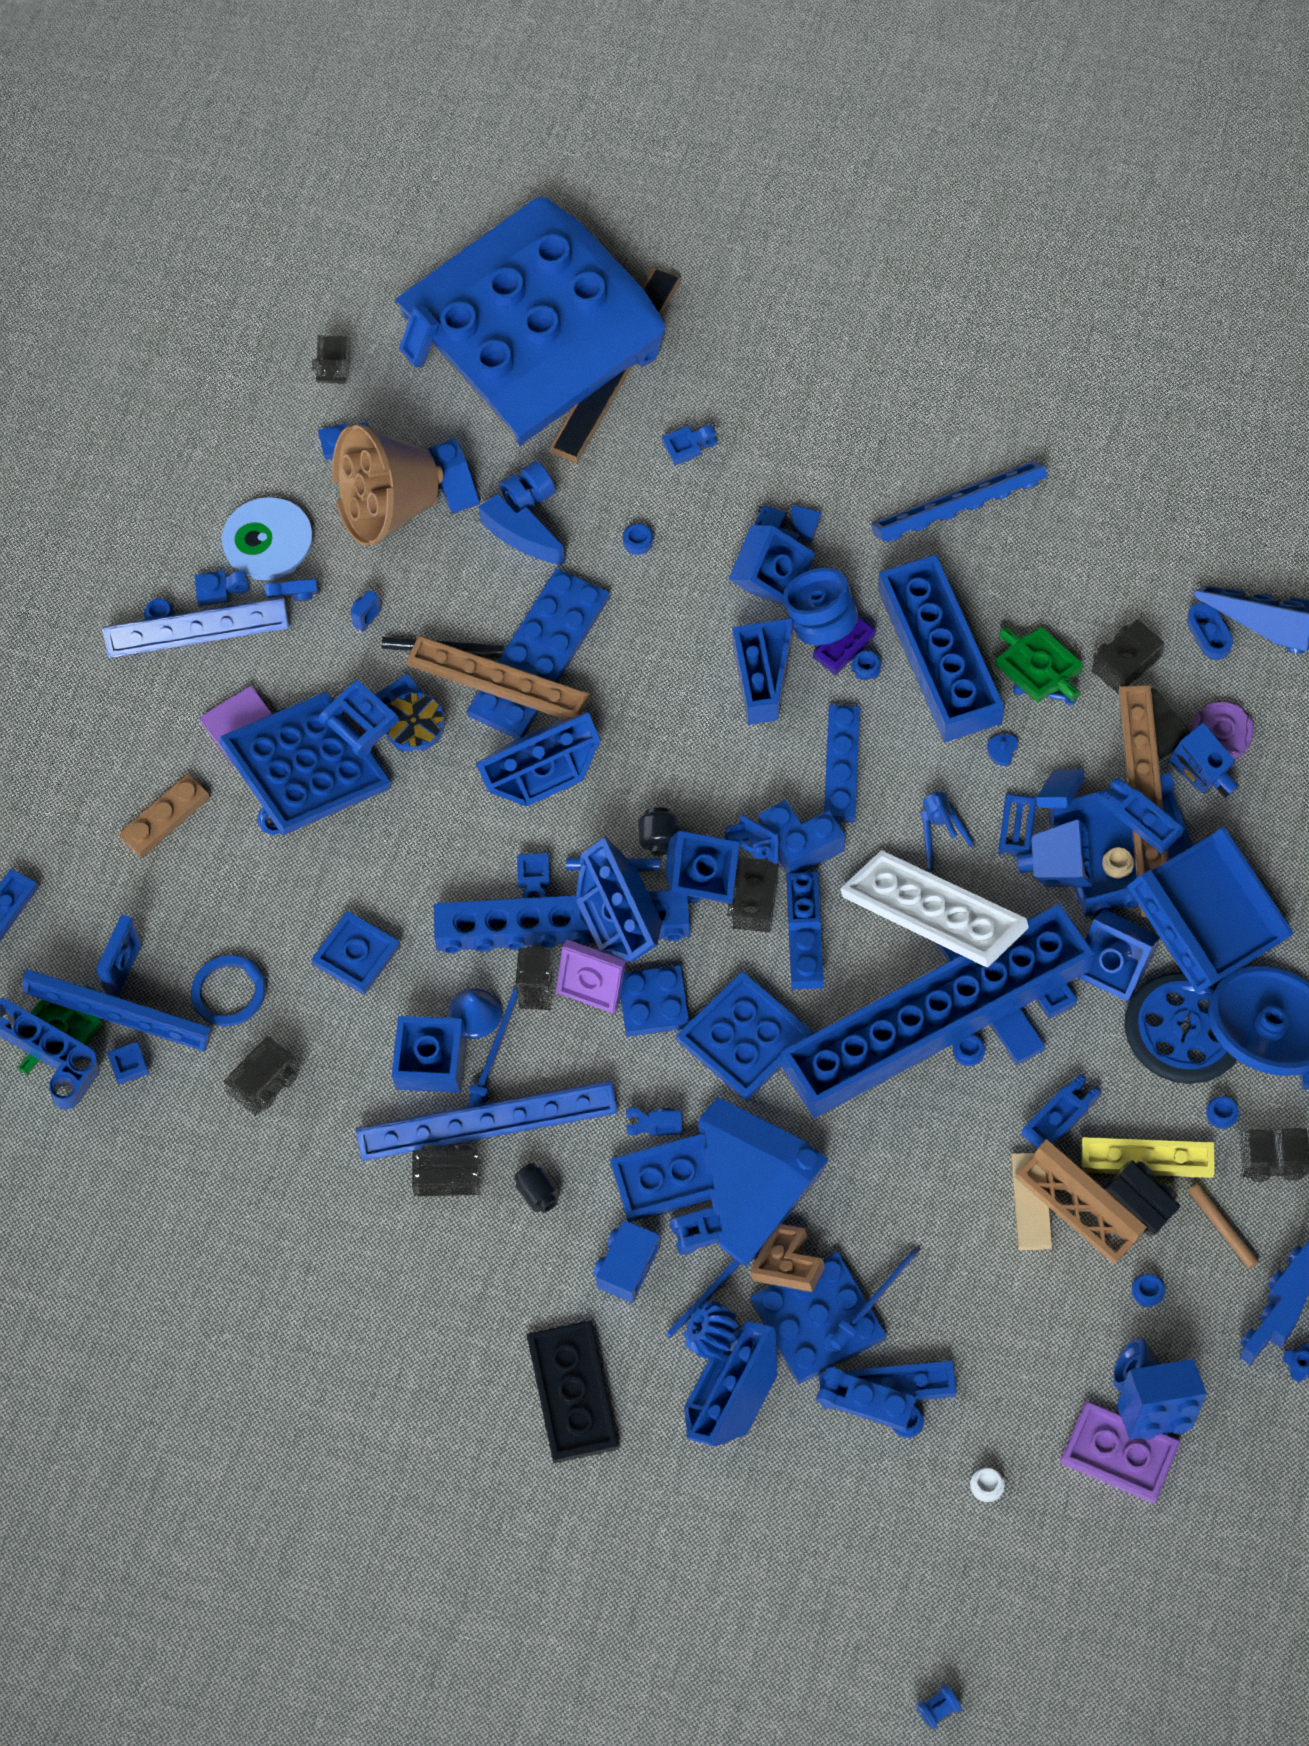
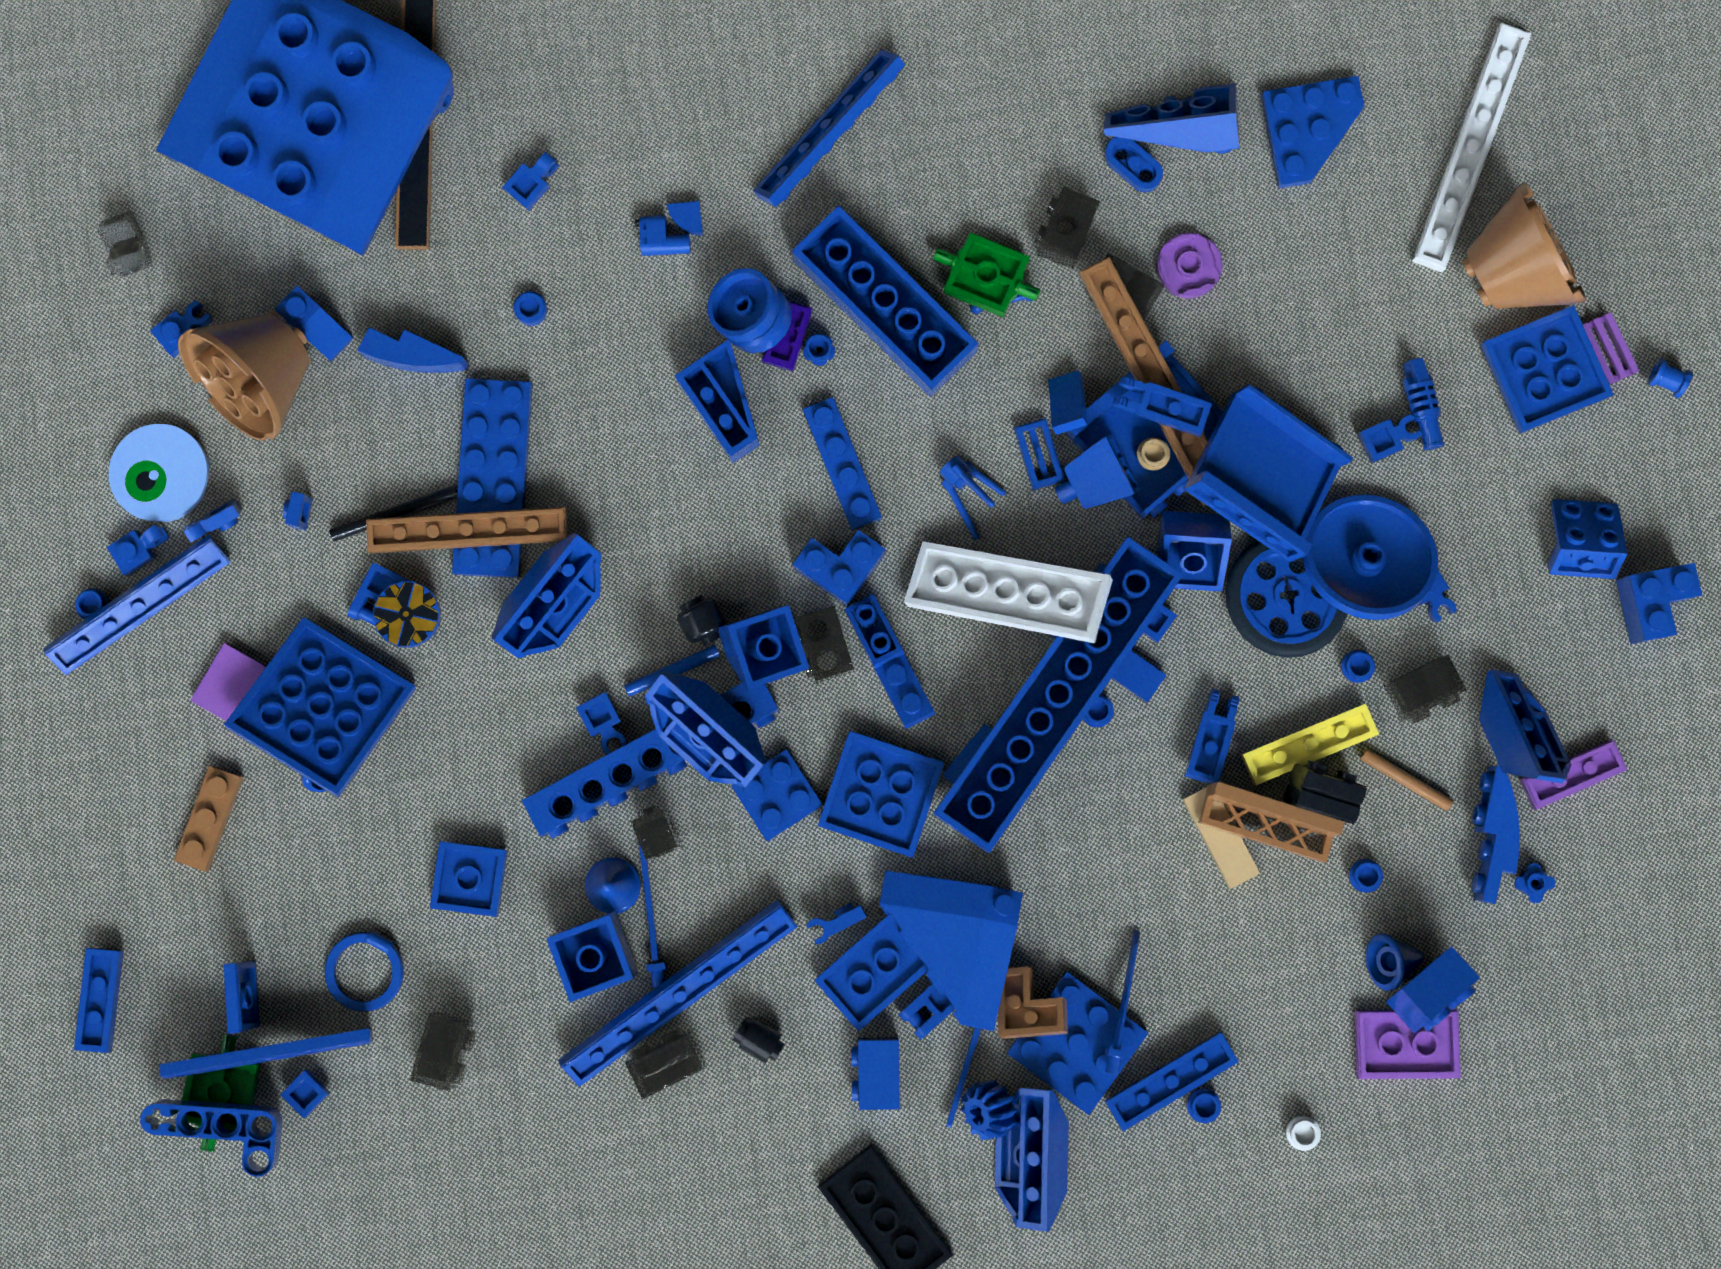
camera: 25 degrees left, 20 degrees up
(364, 710) = (355, 629): blue plate -> none
(418, 335) = (201, 182): blue tile -> none
(531, 486) = (399, 294): blue wheel -> none
(590, 976) = (709, 807): medium lavender tile -> none
(754, 838) = (809, 594): blue hinge -> none
(769, 562) = (676, 282): blue slope -> none
(866, 1399) = (1163, 1110): blue plate -> none
(1001, 749) = (987, 379): blue piece -> none
(1204, 762) = (1191, 312): blue torso -> none

